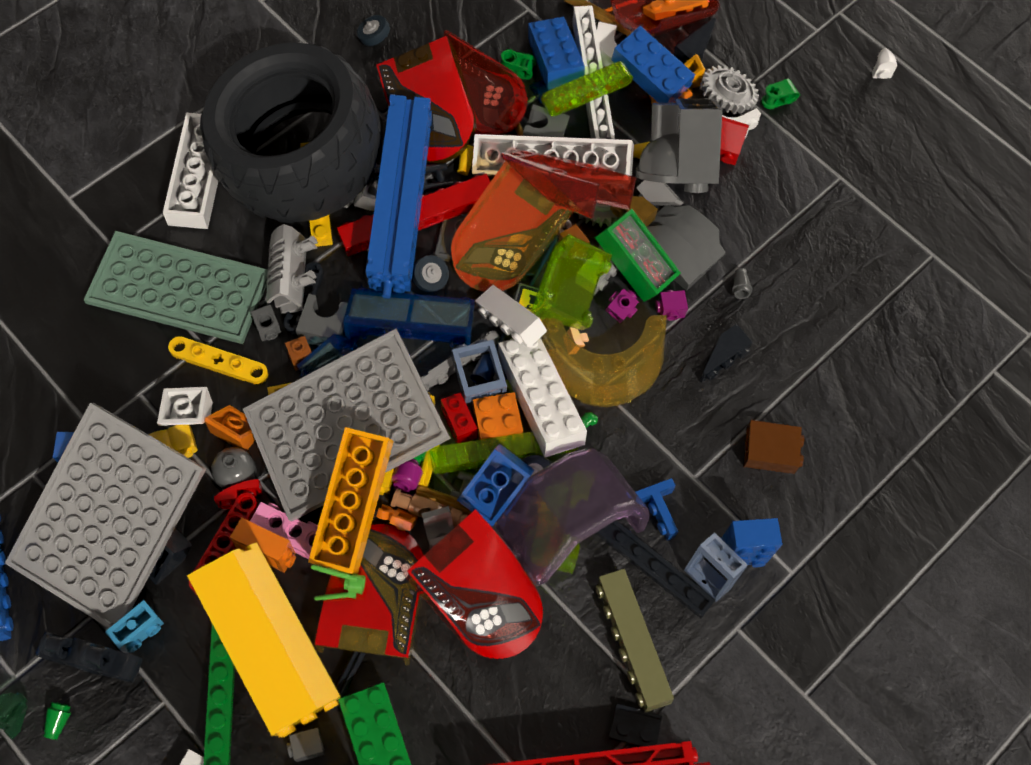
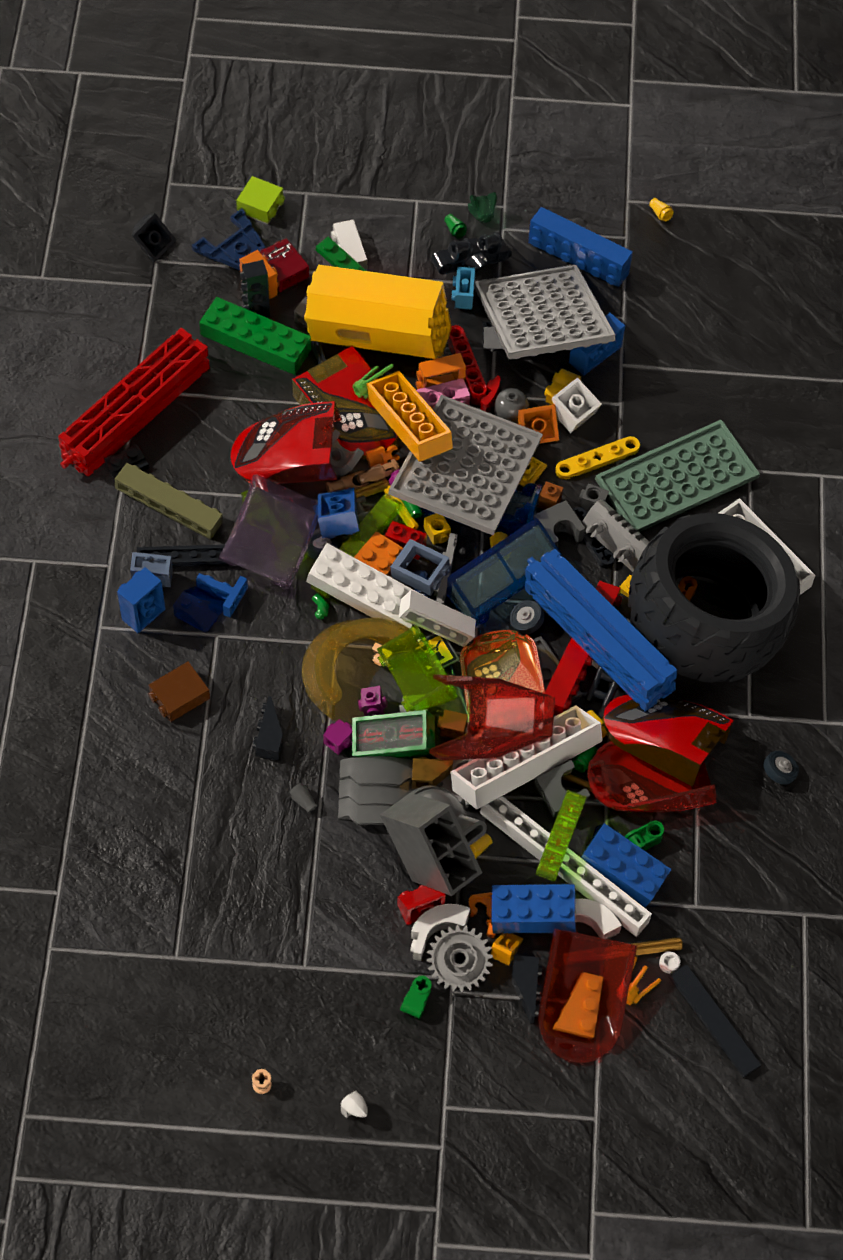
camera: 140 degrees right, 5 degrees down
(692, 512) = (198, 608): none -> clear blue slope
(938, 123) = (261, 1088): none -> light nougat bush

